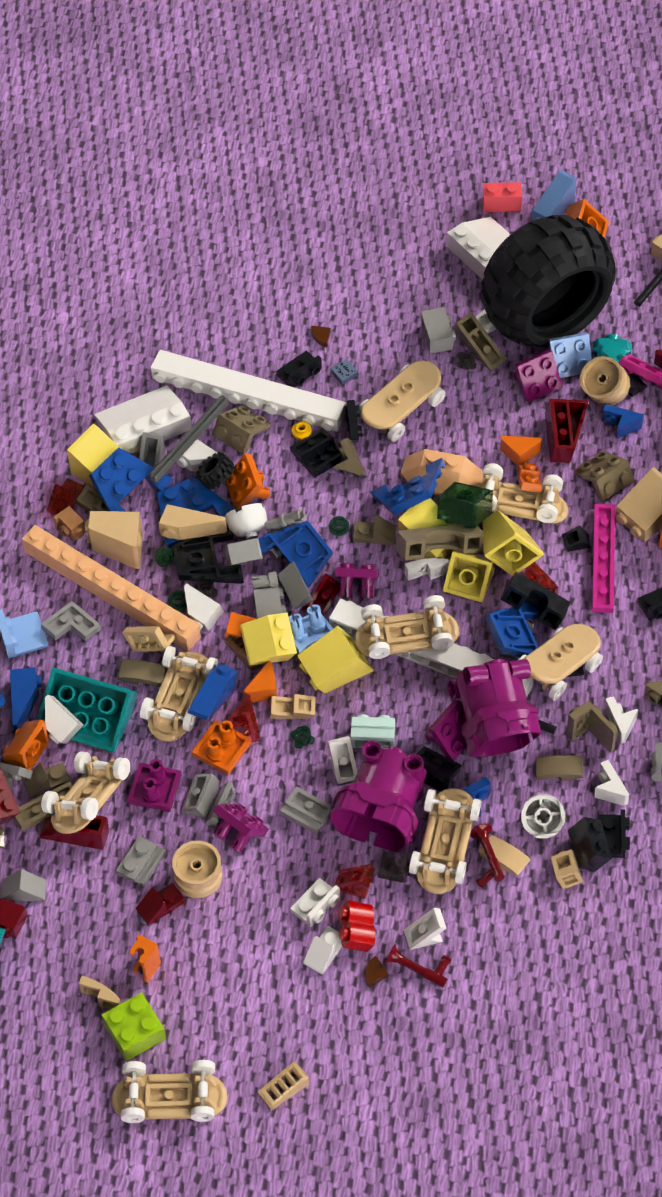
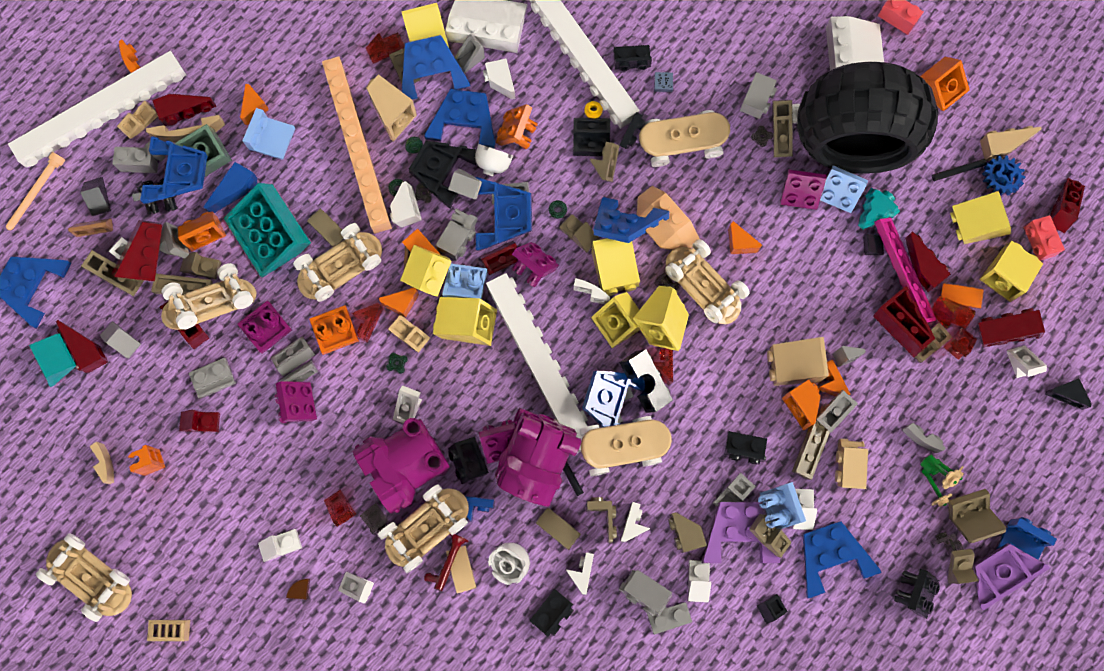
camera: 35 degrees right, 20 degrees up
(60, 721) = (237, 226): white slope -> none
(70, 523) = (369, 69): medium nougat brick -> none
(71, 618) = (308, 147): light grey plate -> none
(134, 1026) = (103, 506): lime brick -> none
(147, 638) = (348, 206): tan bracket -> none
(187, 523) = (446, 131): tan slope -> none
(188, 439) = (500, 62): dark grey axle -> none
(197, 869) = (226, 415): tan wheel -> none
(214, 692) = (355, 284): blue slope -> none
(215, 470) = (499, 102): black tyre -> none
(238, 427) = (551, 75): dark tan bracket -> none
(285, 520) = (515, 180): light grey pin -> none
(295, 586) = (483, 238): light grey slope -> none
(306, 810) = (352, 425): light grey plate -> none
(315, 902) = (302, 502): white bracket -> none
(321, 335) = (671, 39): reddish brown tile -> none
(357, 926) = (310, 547): red brick -> none
(372, 729) = (447, 398): light aqua brick -> none
(406, 632) = (528, 339): tan piece -> none
(417, 542) = (631, 290): dark tan arch -> none
(433, 976) = (336, 627): dark red piece -> none
(464, 504) = (651, 266): clear green brick -> none
(529, 477) = (727, 271): orange slope -> none
(556, 197) = (938, 45): medium blue slope -> none
(563, 427) = (788, 246): dark red wedge -> none
(566, 869) = (488, 616): tan brick -> none
(576, 539) = (723, 347): black slope -> none
(589, 844) = (525, 612): black brick -> none
(603, 558) = (730, 378): dark pink plate -> none
(605, 381) = (849, 231): tan wheel -> none
(607, 473) = (789, 308): dark tan bracket -> none
(627, 420) = (842, 275): blue slope -> none

